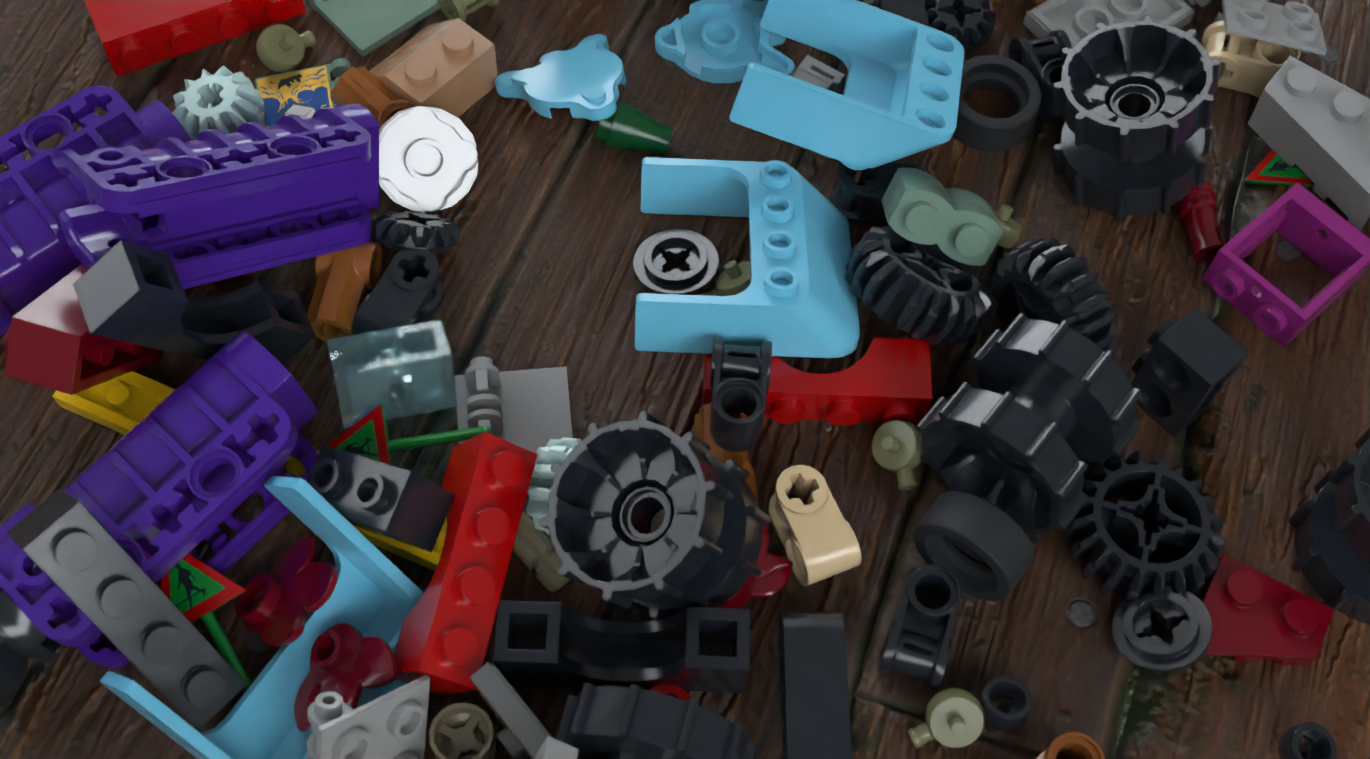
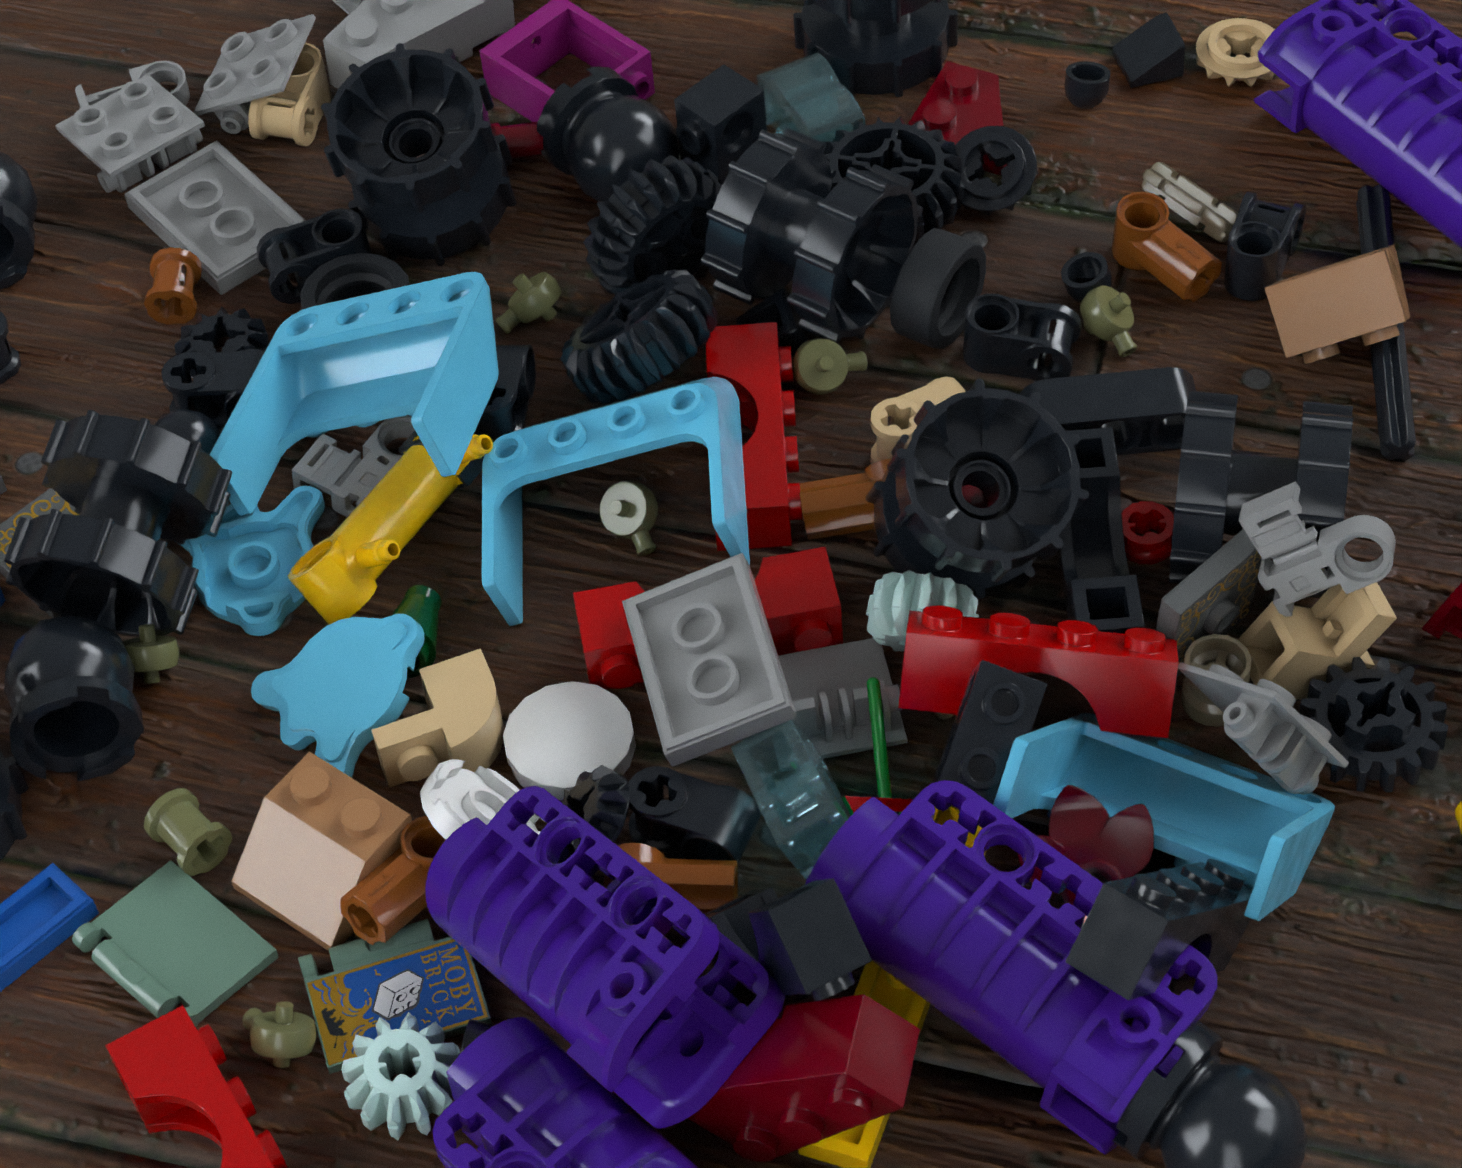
camera: 85 degrees left, 10 degrees down
(344, 664) = (1188, 766): dark red plate -> none
(510, 234) = (567, 732): none -> white tile
(523, 302) = (708, 660): none -> light grey tile
(536, 158) = (459, 722): none -> tan brick
(600, 277) = (794, 593): none -> red arch
(676, 247) = (604, 549): gear -> none
(693, 82) = (343, 569): none -> yellow piece
(738, 384) = (807, 456): black piece -> none
(952, 217) = (553, 313): sand green brick -> none
(1178, 272) = (603, 132): none -> black tile
(1250, 466) = (808, 99): none -> clear light blue brick

